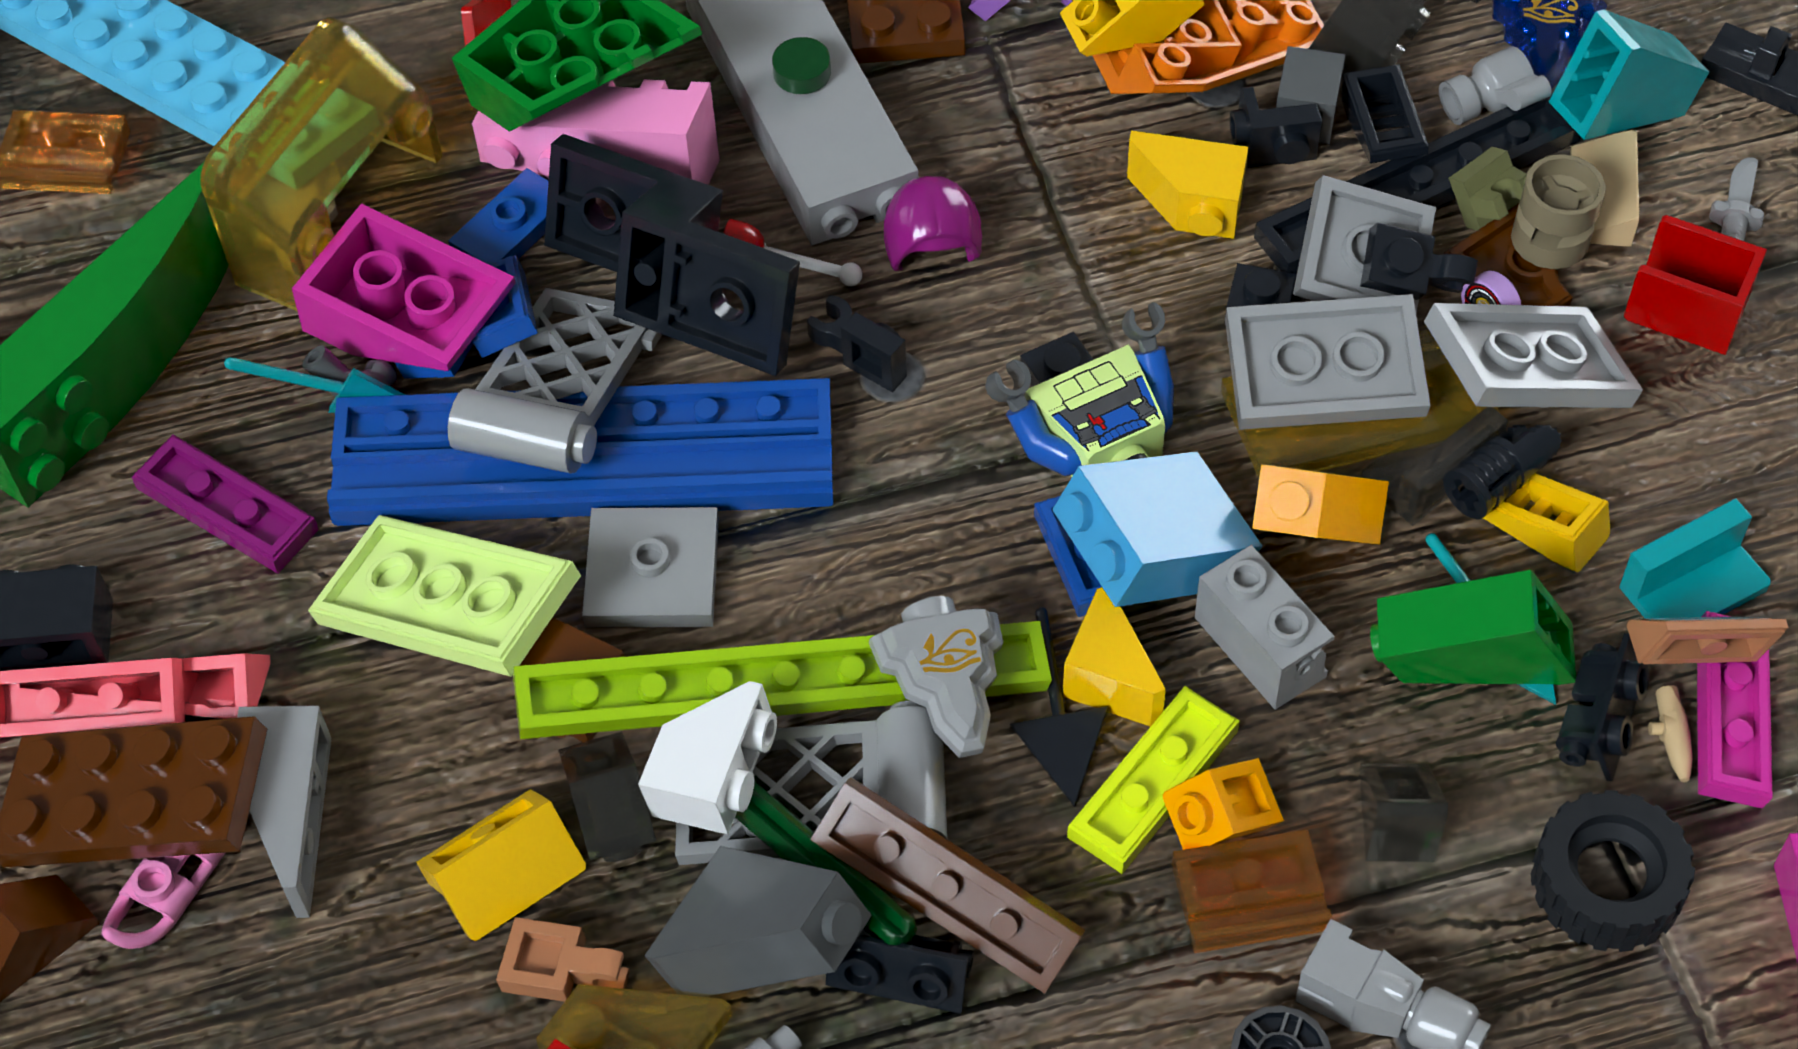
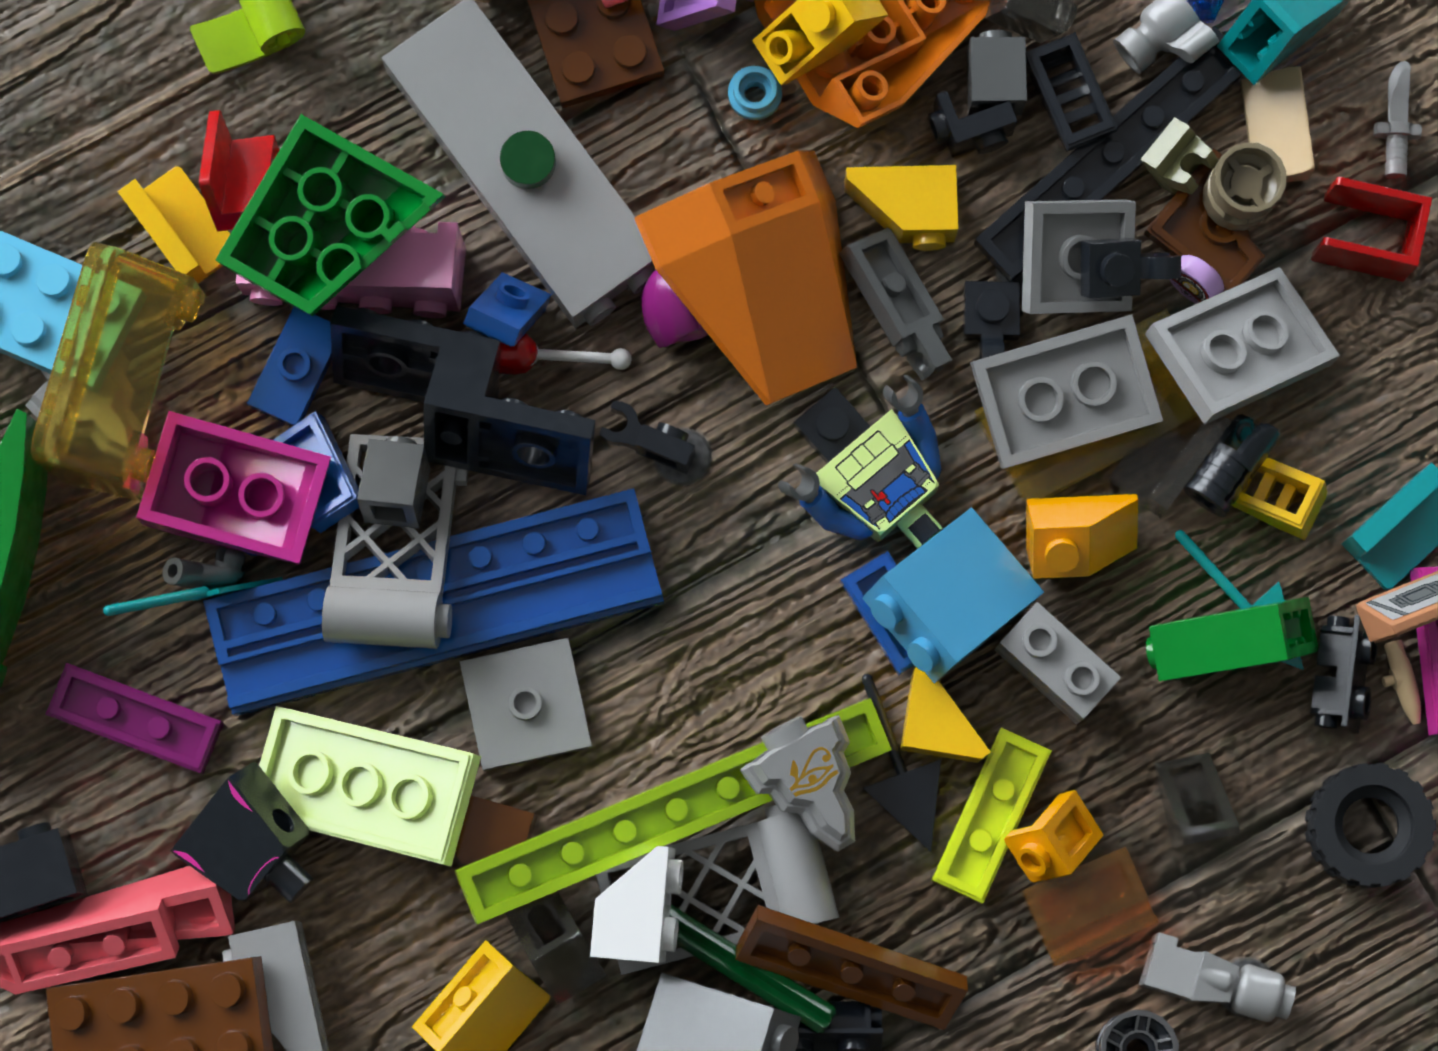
camera: 15 degrees left, 25 degrees up
(297, 615) = (247, 838): none -> black torso
(439, 78) = (177, 222): none -> yellow panel
(572, 314) = (394, 482): none -> dark grey brick
(744, 190) = (507, 309): none -> blue plate
(1019, 194) = (761, 271): none -> orange wedge
(1053, 73) = (754, 77): none -> medium azure plate
(1161, 266) = (898, 300): none -> dark grey hinge

